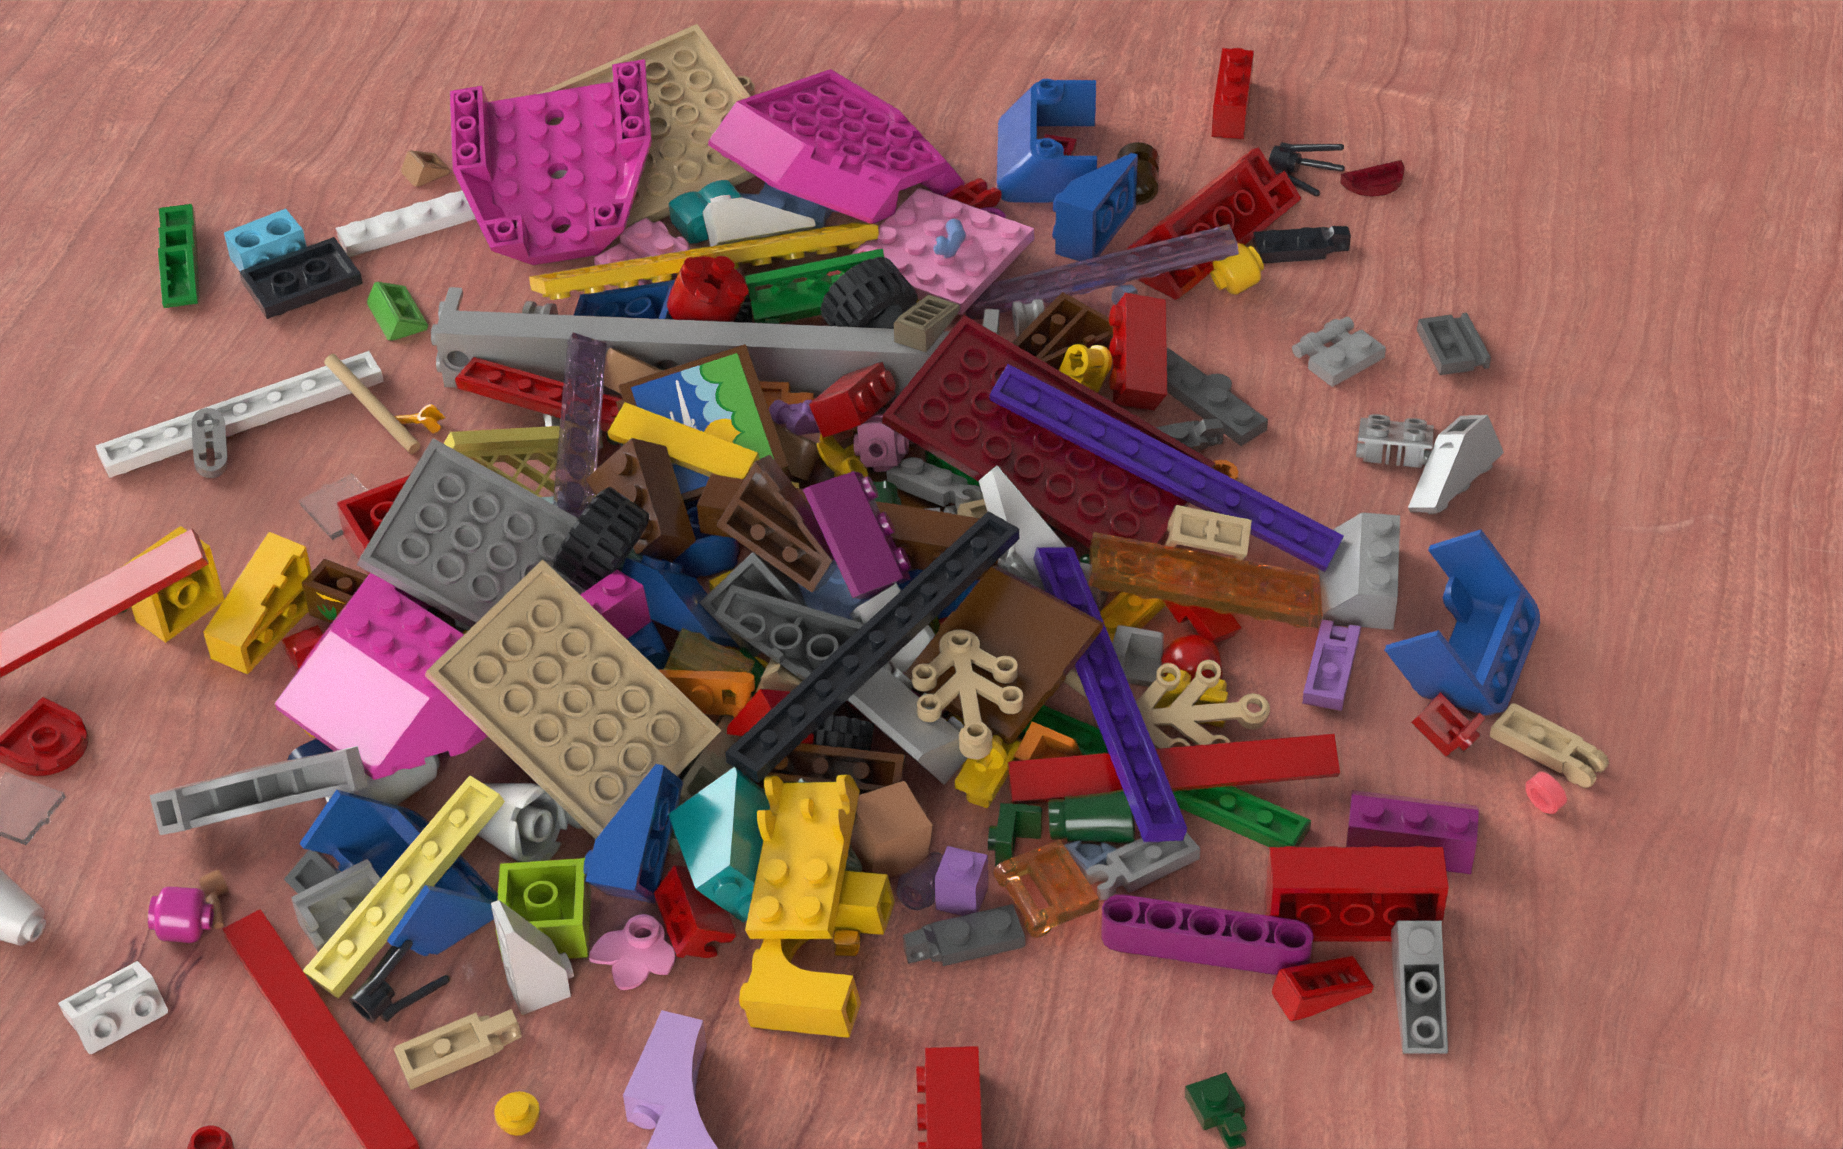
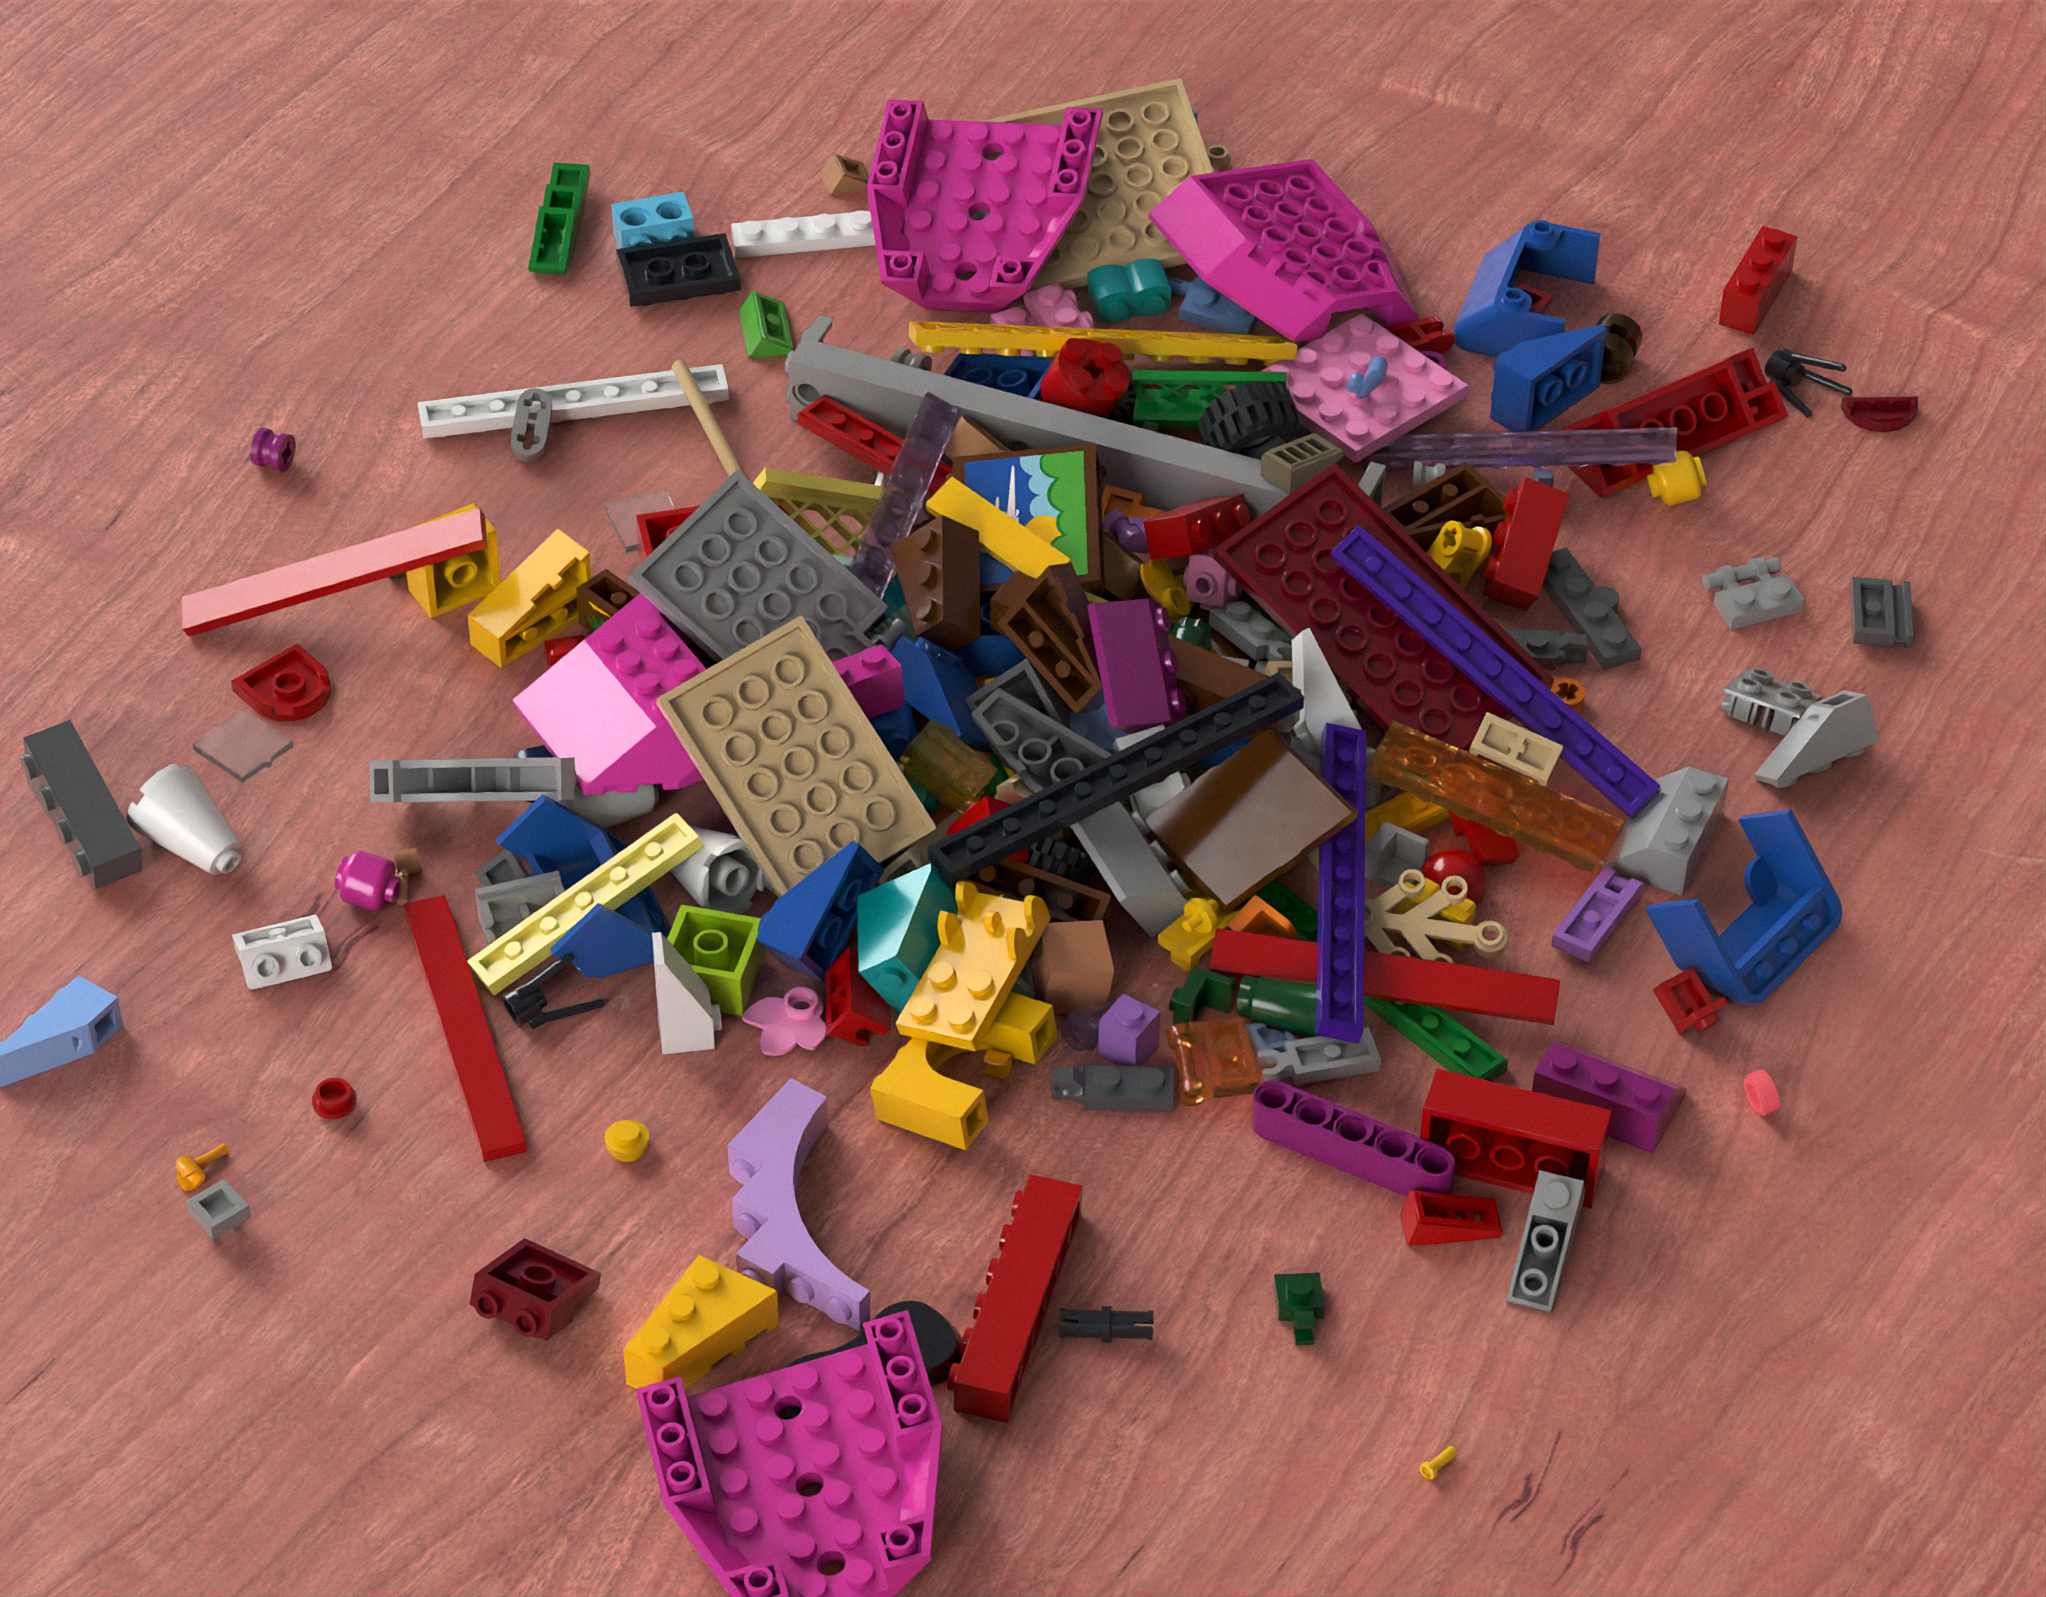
camera: 15 degrees right, 0 degrees up
(427, 416) = (760, 447): light orange hand -> none
(455, 1046) = (589, 1065): tan hinge -> none
(601, 538) = (876, 609): black tyre -> none
(708, 689) = (939, 786): orange plate -> none
(744, 219) = (1160, 308): white slope -> none
(959, 650) = (1204, 806): tan plant -> none
(1300, 244) = (1762, 466): black hinge -> none
(1549, 745) = (1788, 1046): tan hinge -> none

